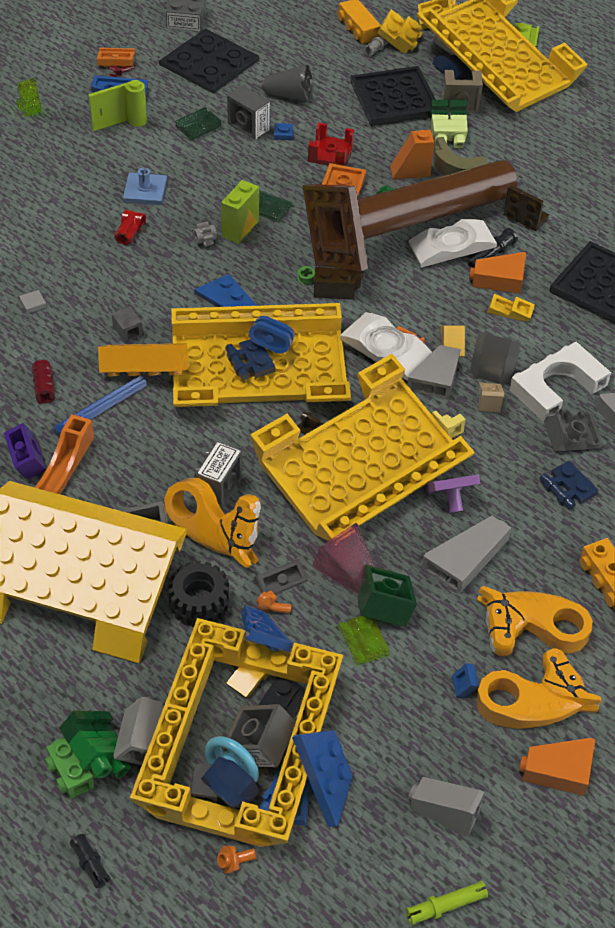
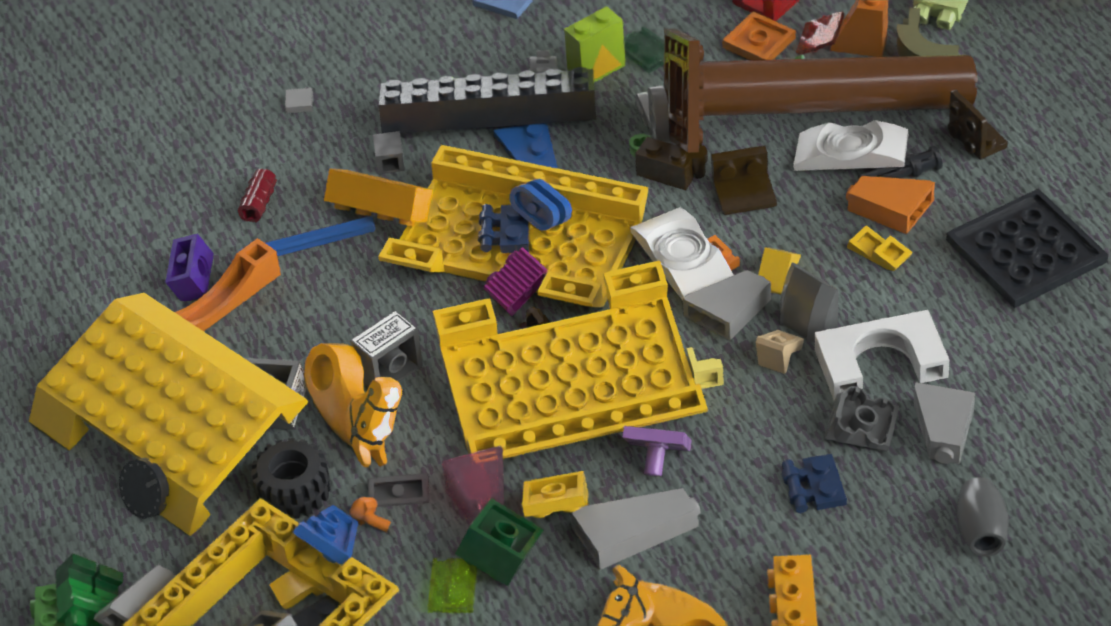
camera: 30 degrees right, 5 degrees down
(88, 637) = (143, 488): none -> black tile
(130, 224) = (463, 32): red piece -> none
(181, 269) = (487, 101): none -> black brick
(282, 395) = (515, 281): none -> magenta brick
(313, 255) = (654, 112): none -> light grey beam
(383, 168) = (820, 33): none -> clear red piece
(393, 284) = (742, 180): none -> dark brown bracket
(405, 547) = (554, 494): none -> yellow plate

